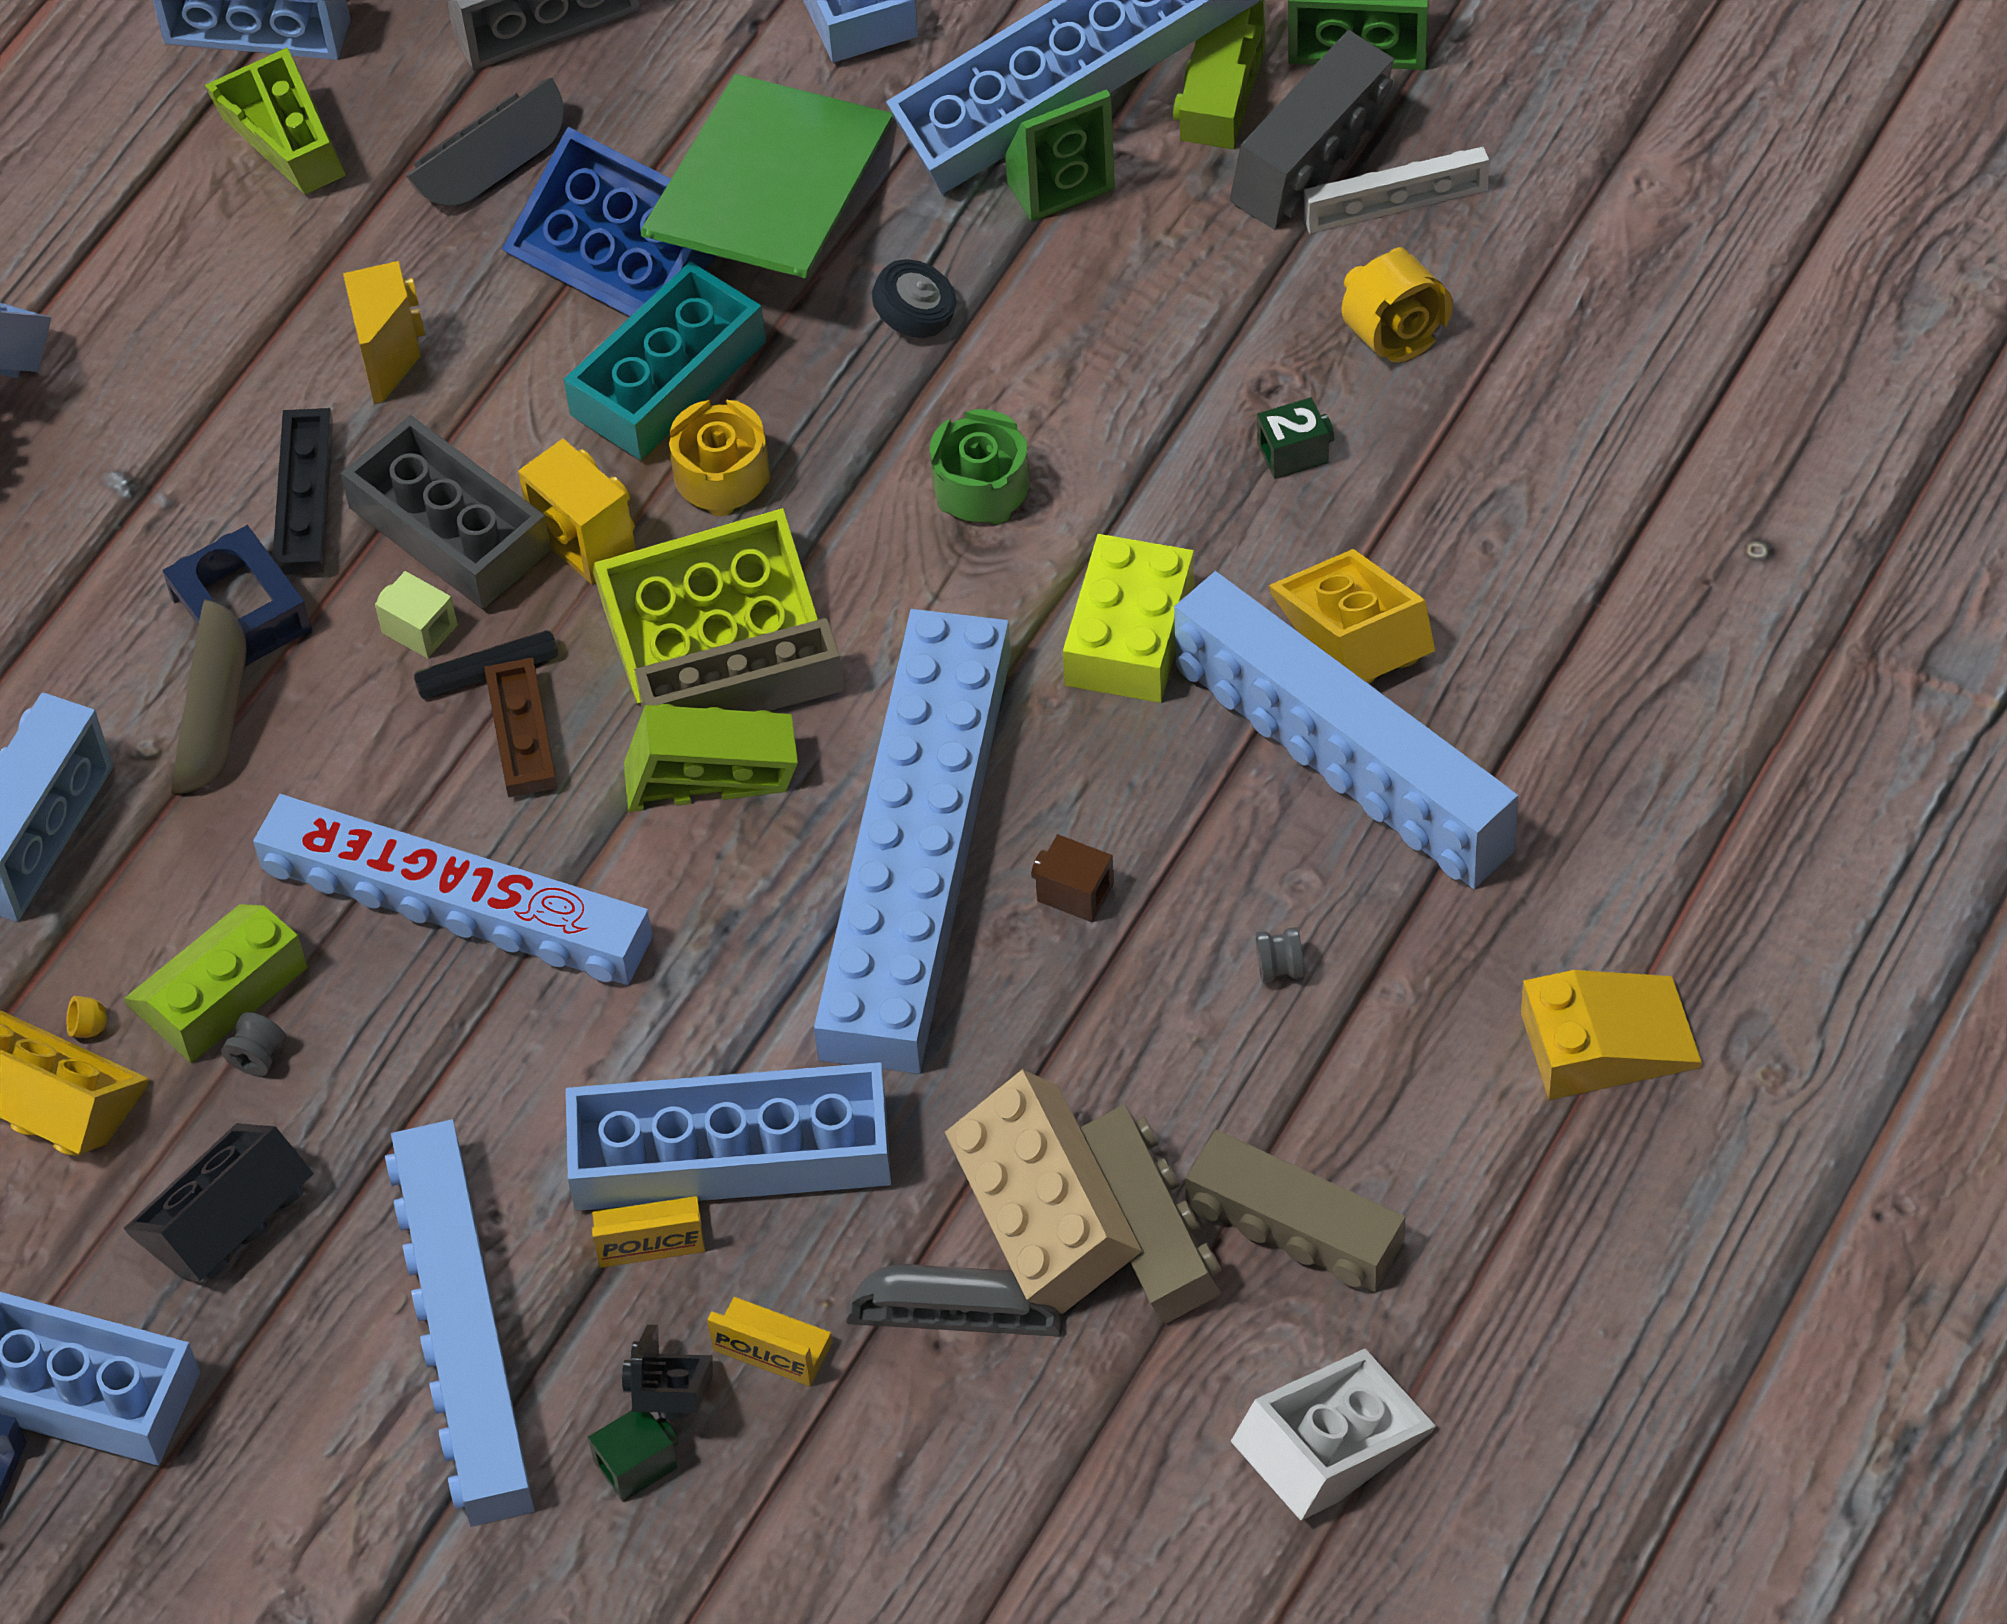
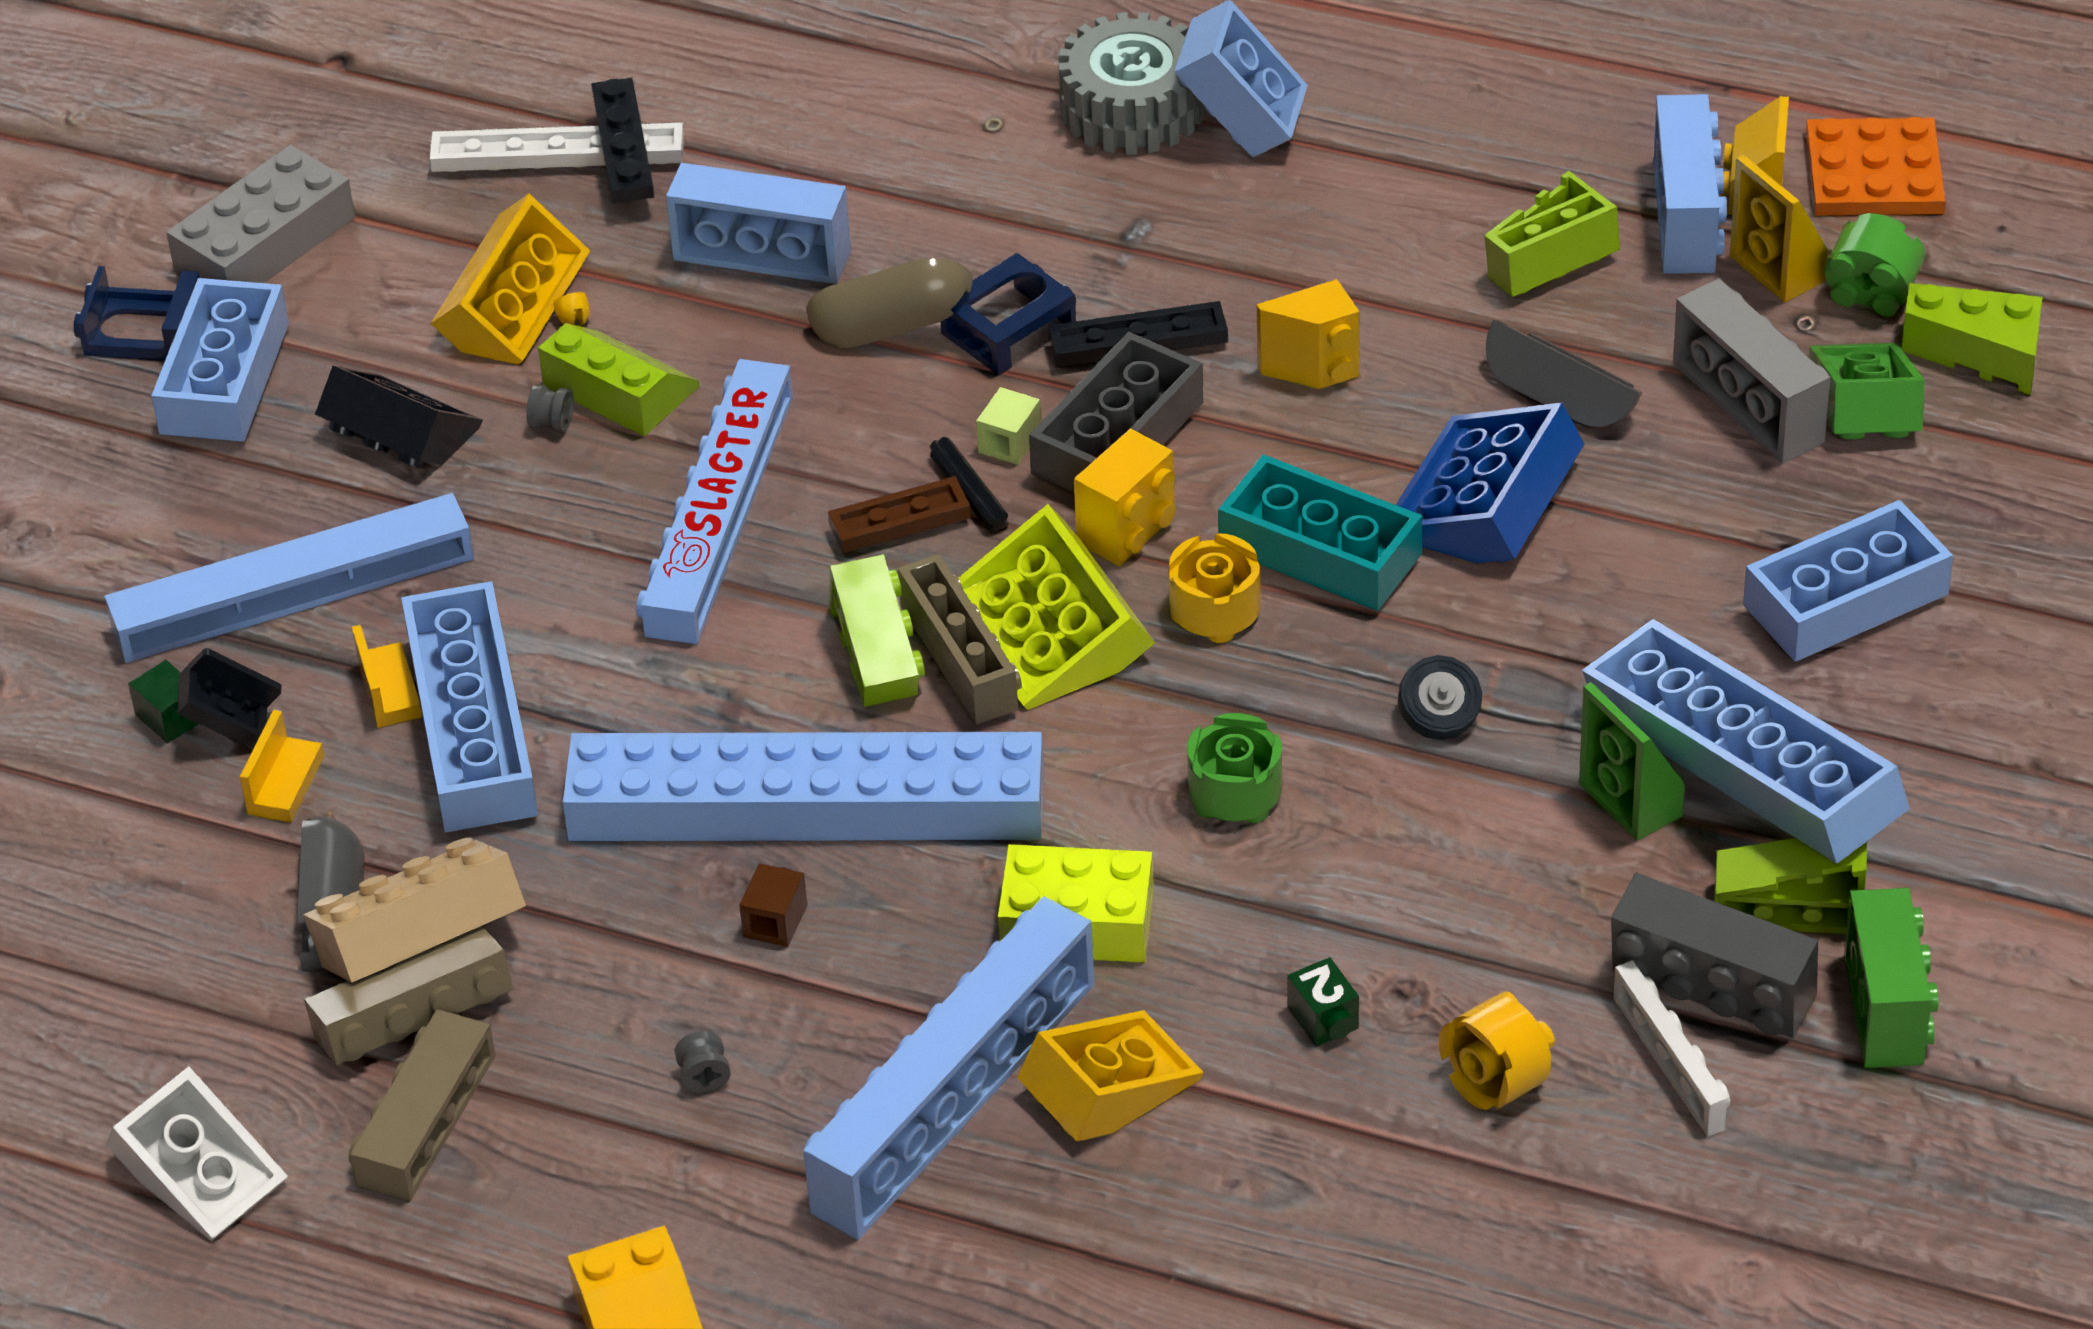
camera: 80 degrees right, 10 degrees down
(768, 175) = (1544, 553): bright green piece -> none

